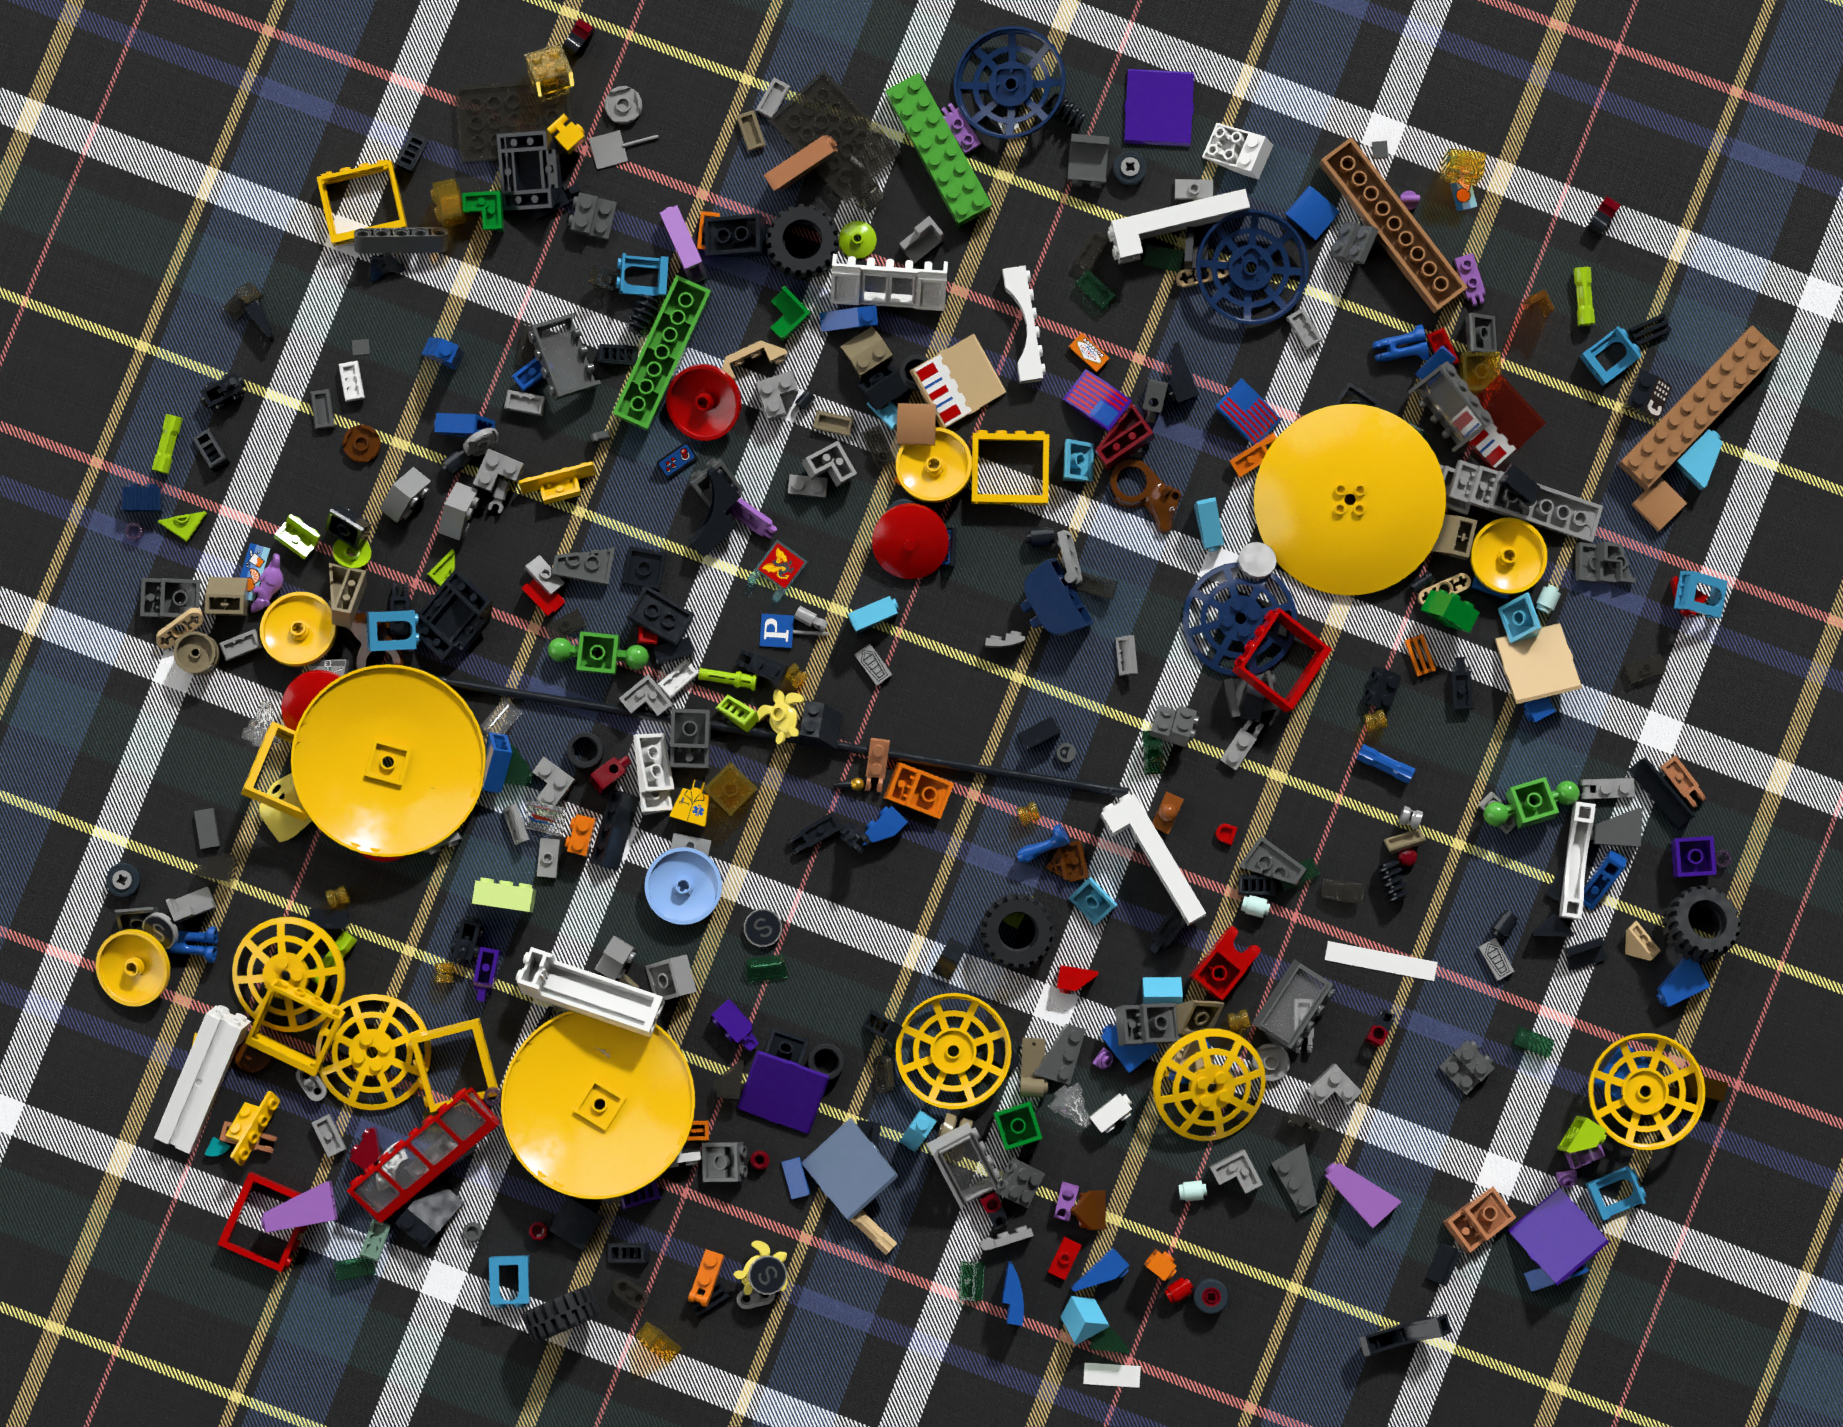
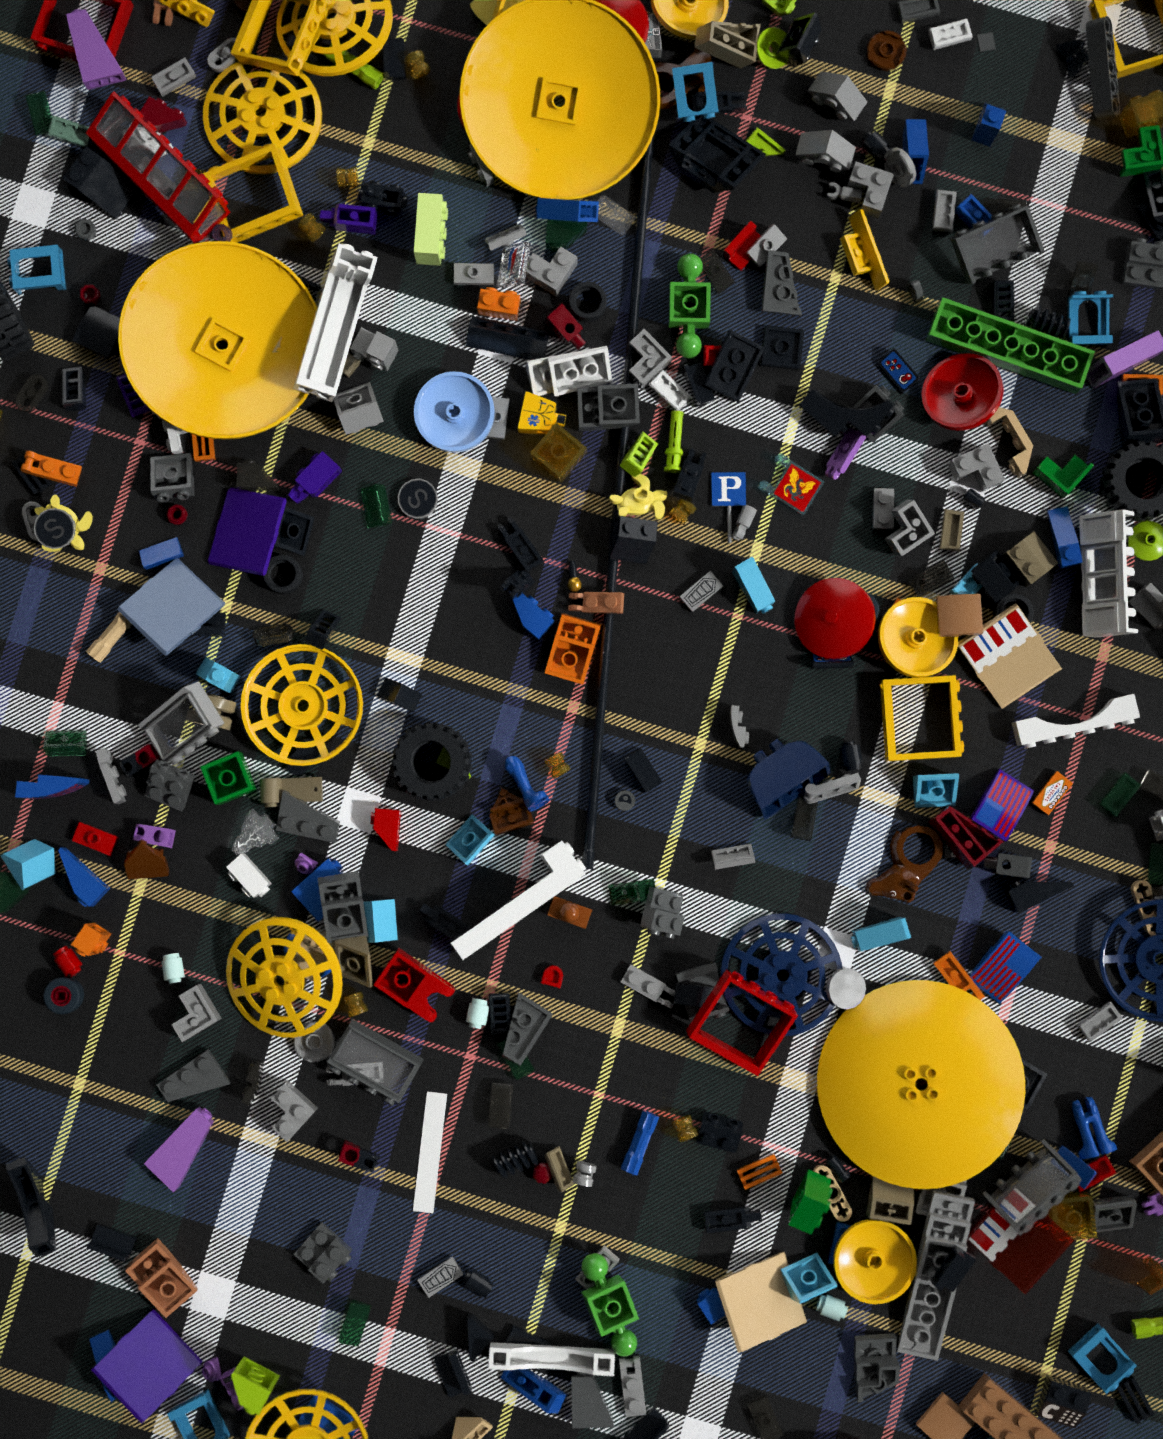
camera: 90 degrees right, 0 degrees up
(492, 1009) = (312, 228): none -> clear yellow wheel

